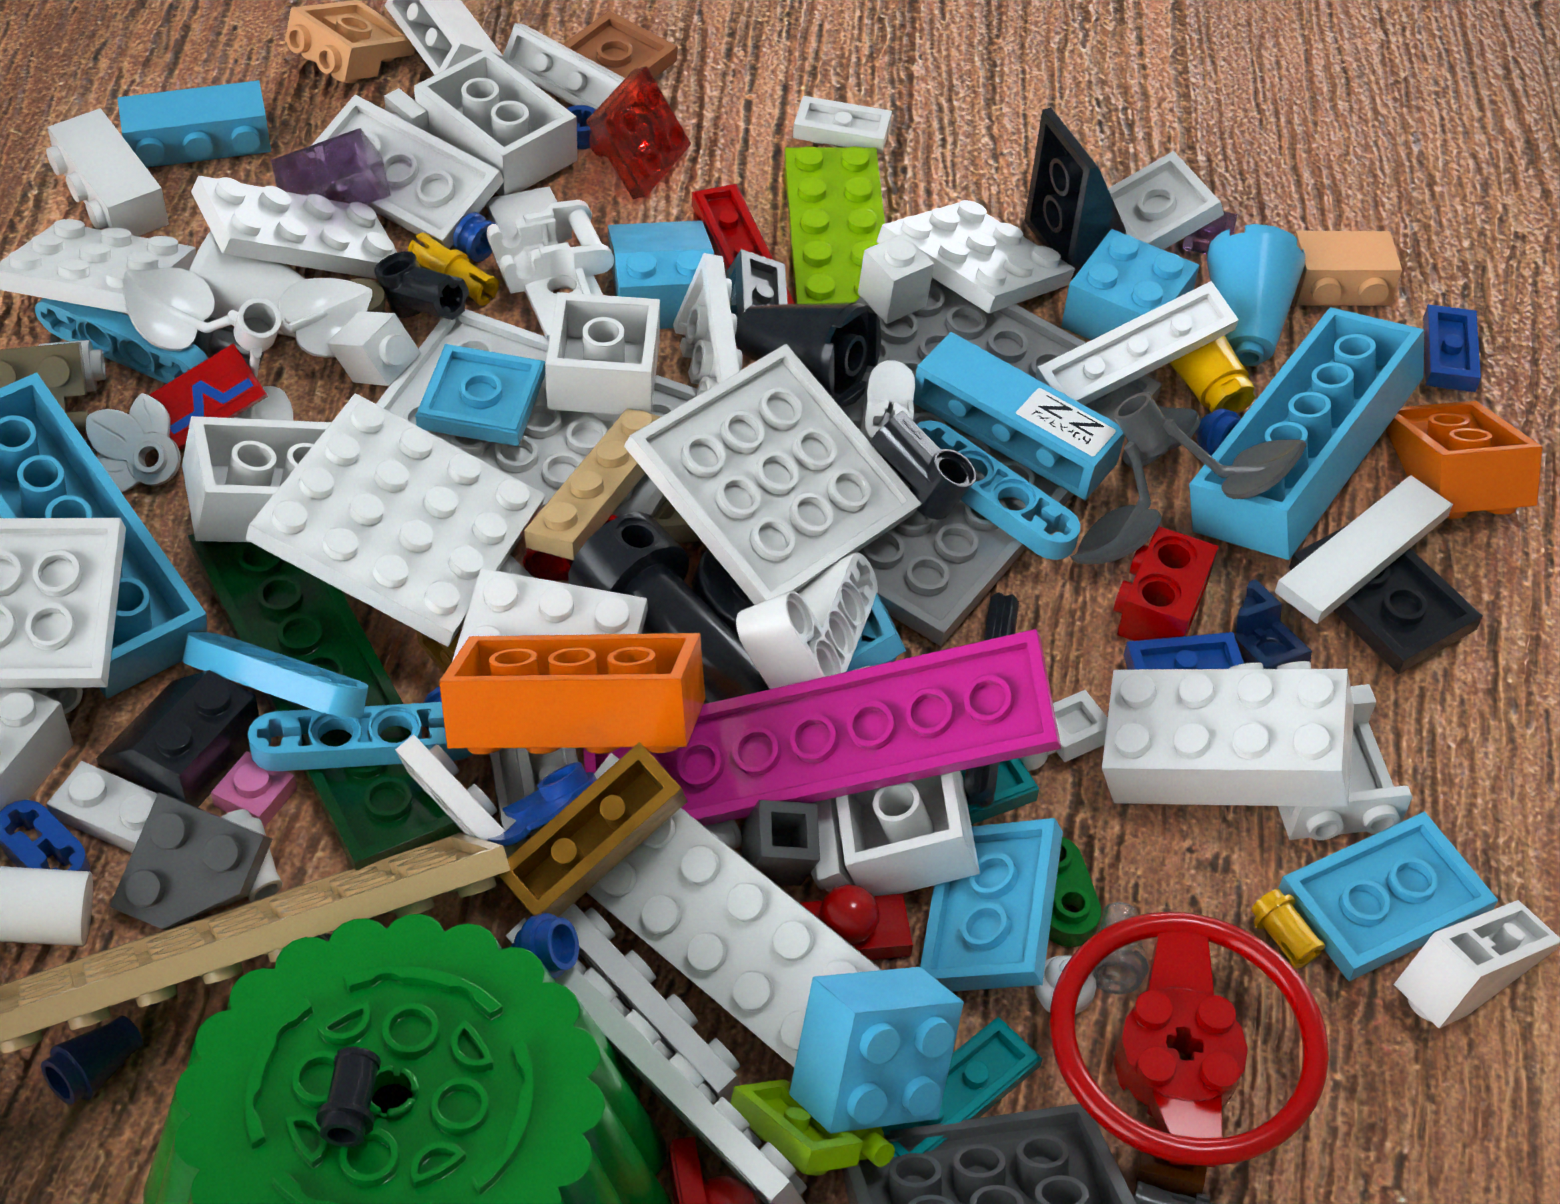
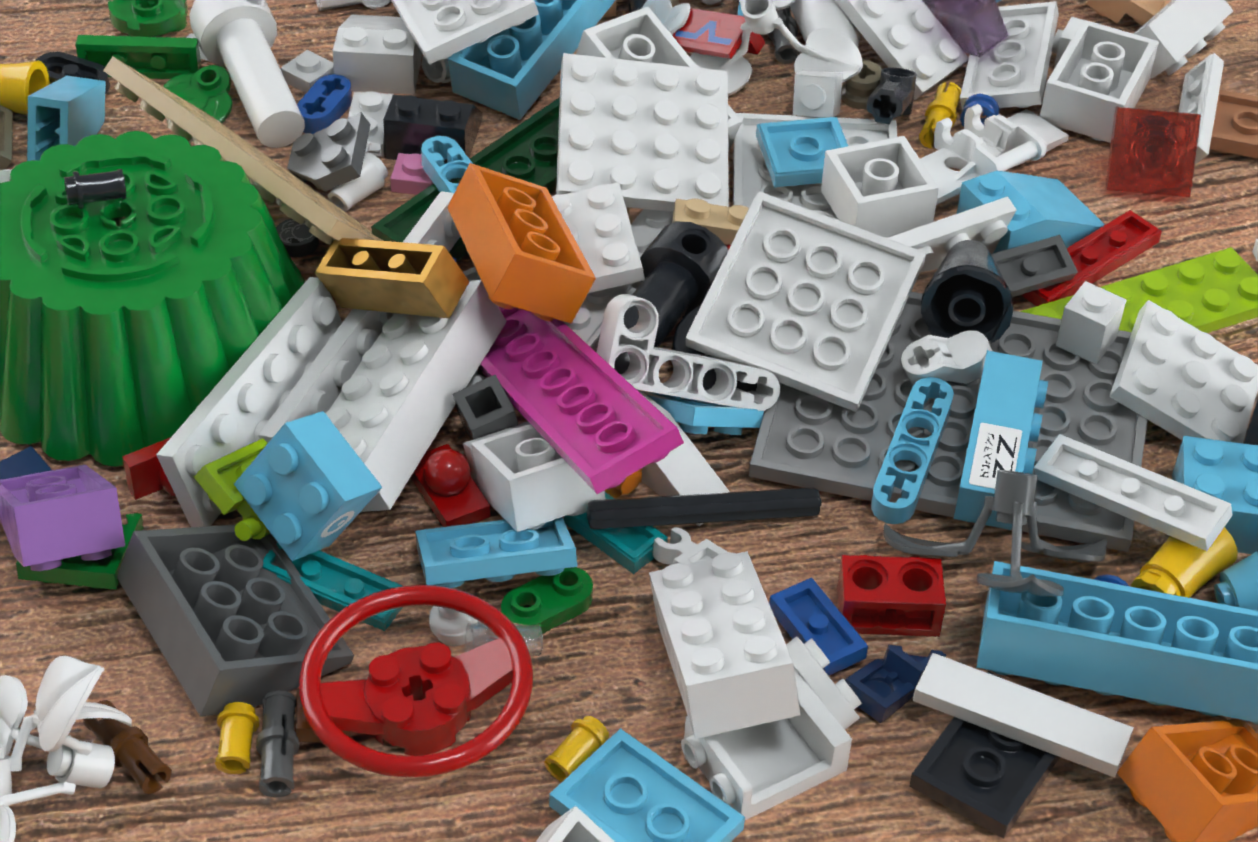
camera: 70 degrees right, 5 degrees down
(276, 674) = (485, 130): medium azure beam -> none
(551, 940) = (295, 284): blue plate -> none
(934, 475) = (889, 385): black piece -> none

